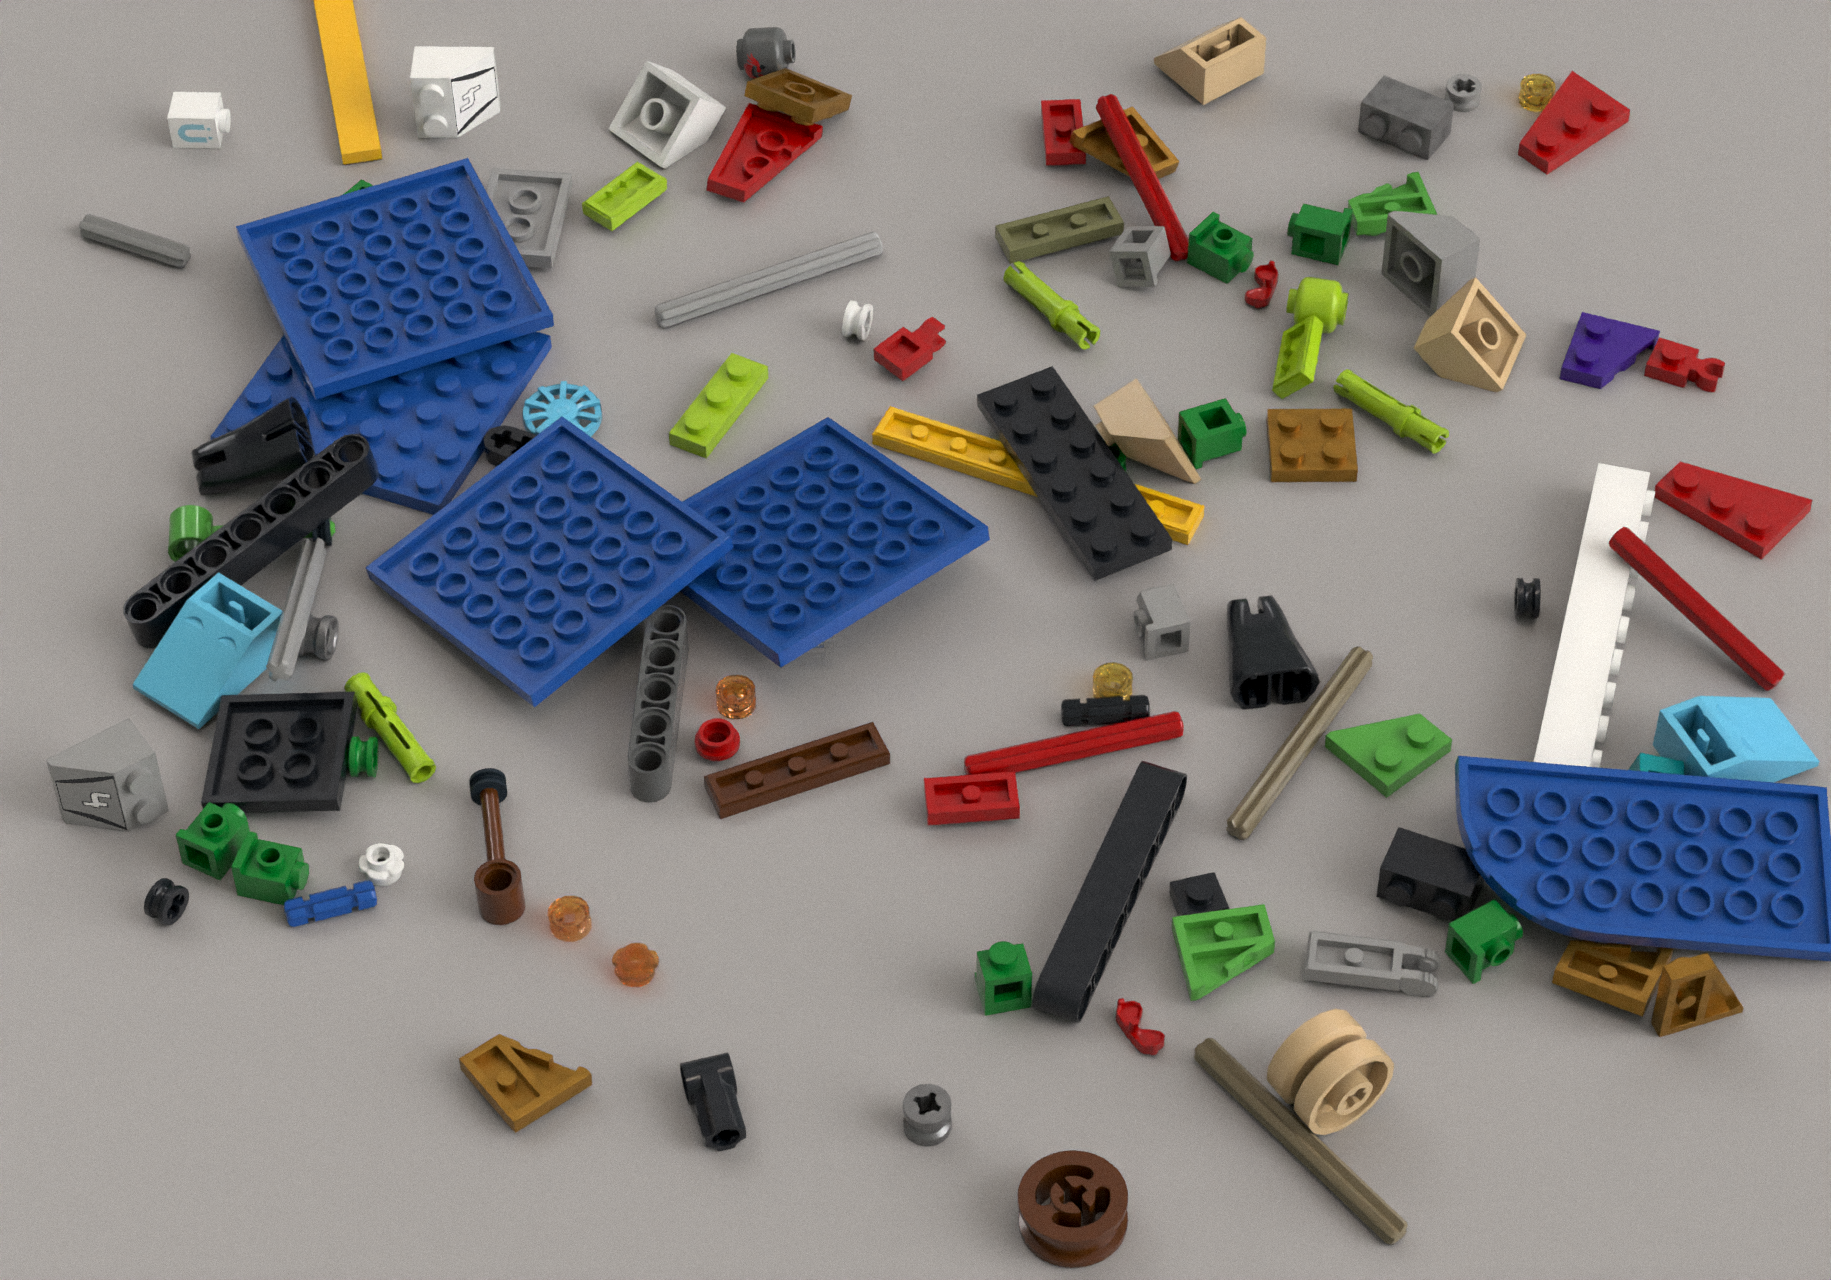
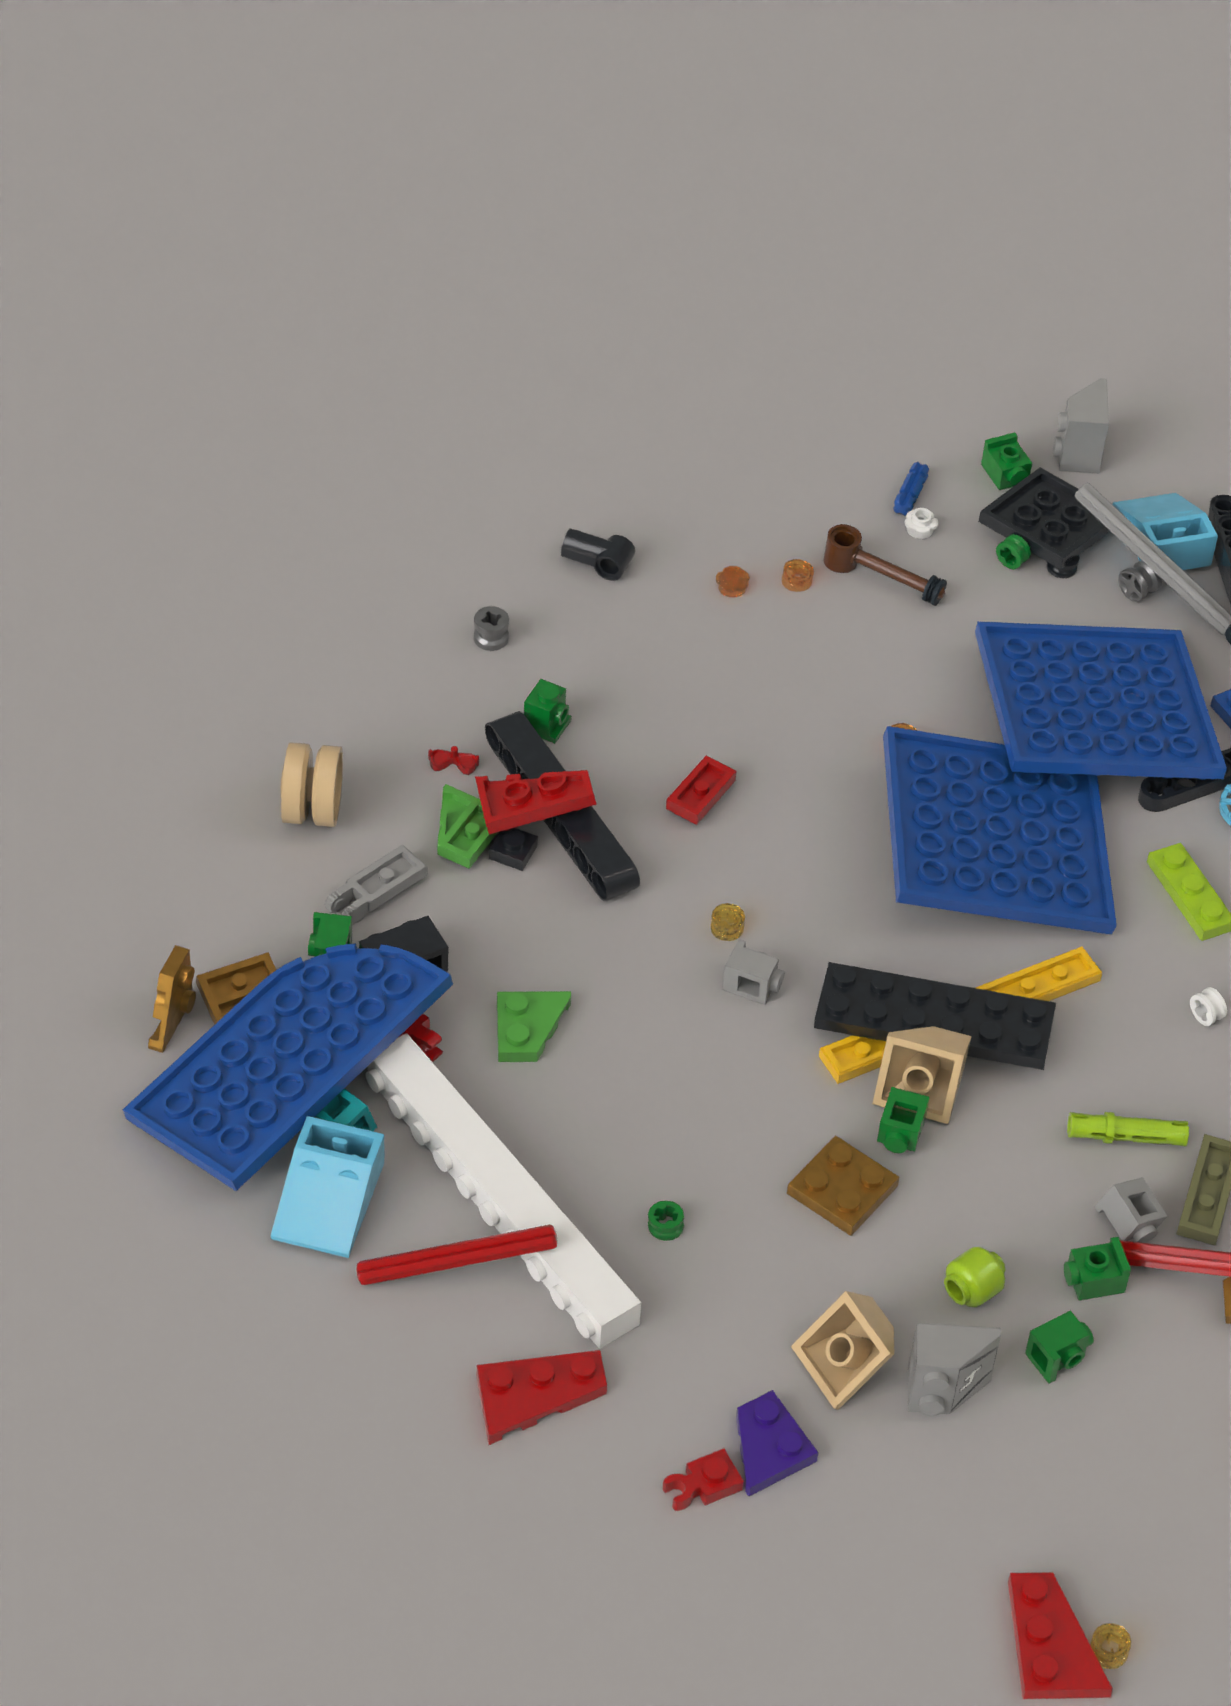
camera: 125 degrees right, 0 degrees up
(166, 901) = (977, 423): black bush -> none
(269, 870) = (960, 471): green brick -> none
(381, 715) = (1025, 576): lime pin -> none
(520, 1080) = (697, 490): pearl gold wing -> none
(658, 704) = (924, 692): dark grey beam -> none
(717, 740) = (872, 709): red plate -> none
(796, 770) = (812, 736): reddish brown tile -> none
(909, 351) = (1153, 1014): red plate -> none
(1055, 1229) = (360, 657): reddish brown wheel -> none
(1077, 745) = (694, 870): red axle -> none
(1104, 710) = (715, 895): black axle -> none
(1154, 881) = (525, 801): none -> red wing
(1263, 653) = (667, 1004): black piece -> none
(1267, 279) = (1030, 1273): red piece -> none
(1298, 357) = (931, 1228): lime plate -> none
(1299, 743) = (582, 982): dark tan axle -> none
(1301, 1141) = (272, 771): dark tan axle -> none
(1372, 208) = (1050, 1423): bright green wing -> none
(1404, 419) = (831, 1249): lime pin -> none
(1405, 117) = (1149, 1509): flat silver brick -> none
(1464, 92) = (1157, 1577): light grey bush -> none
(1488, 521) = (672, 1228): none -> green bush
(1527, 597) = (573, 1185): black bush -> none

